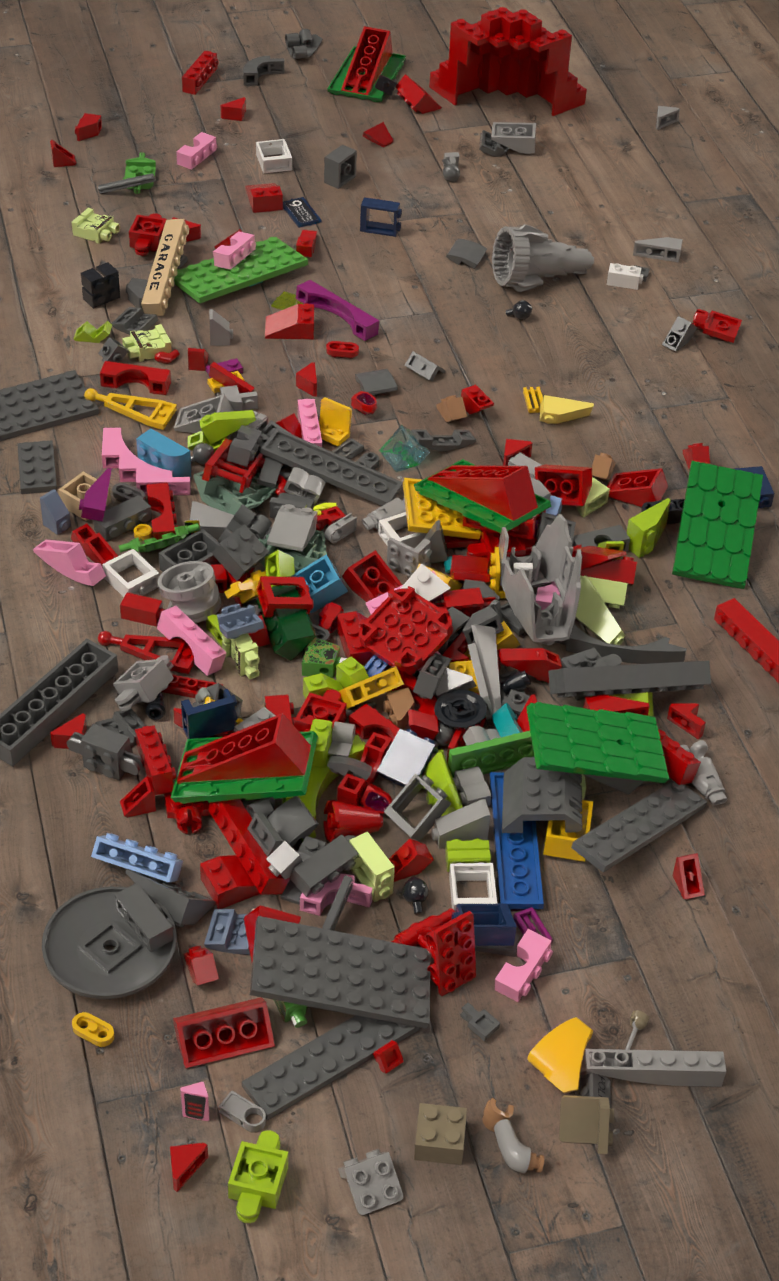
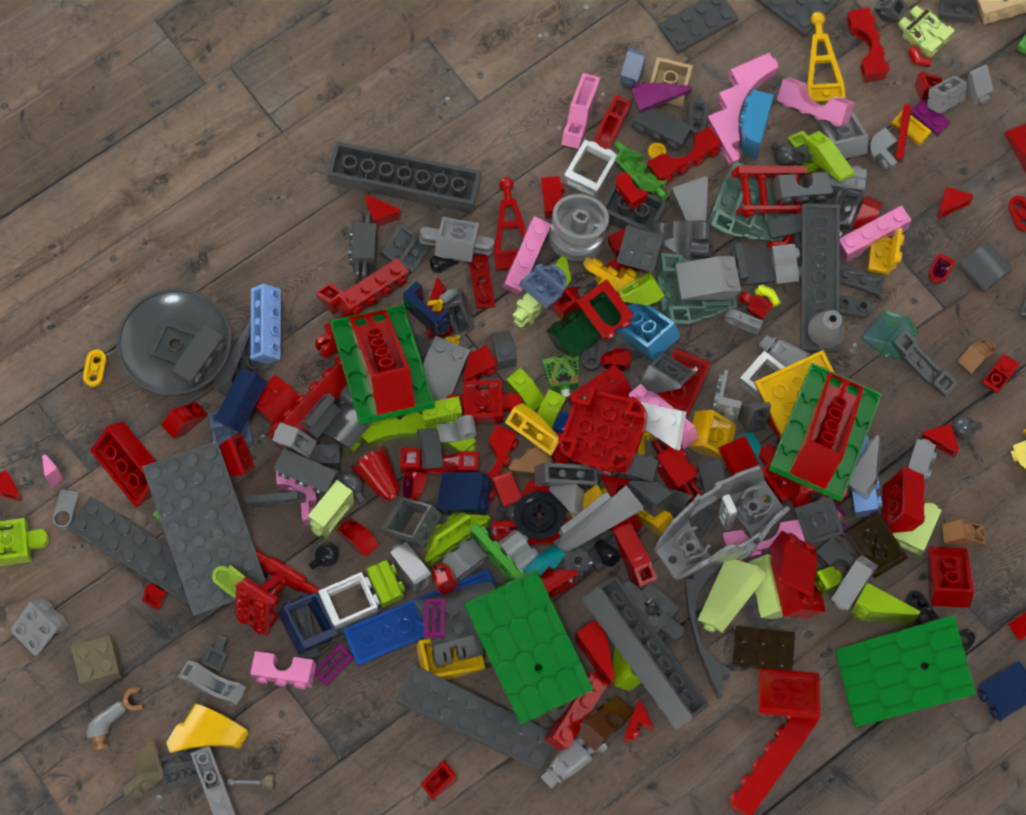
camera: 70 degrees right, 25 degrees up
(178, 544) = (629, 192): none -> red leg
(187, 403) = (795, 94): none -> bright pink arch
(215, 346) = (947, 94): none -> light grey brick
(216, 439) = (798, 158): none -> dark grey plate
(216, 895) = (240, 400): none -> dark blue brick
(272, 686) = (504, 349): none -> dark grey slope
(371, 580) = (665, 374): none -> dark grey slope
(383, 471) = (827, 329): none -> light grey cone
(412, 966) = (227, 578): none -> lime bracket
(493, 795) = (444, 578): none -> red rock
(507, 1039) = (211, 684): none -> light grey arch
(510, 433) = (965, 427): none -> dark grey piece
(538, 801) = (434, 634): none -> magenta tile
(591, 509) = (876, 542): none -> dark brown plate
(622, 526) = (854, 583): none -> light grey slope
(650, 618) = (763, 648): none -> dark brown plate
(685, 732) = (603, 722): none -> reddish brown arch
(703, 607) = (789, 693): none -> red plate

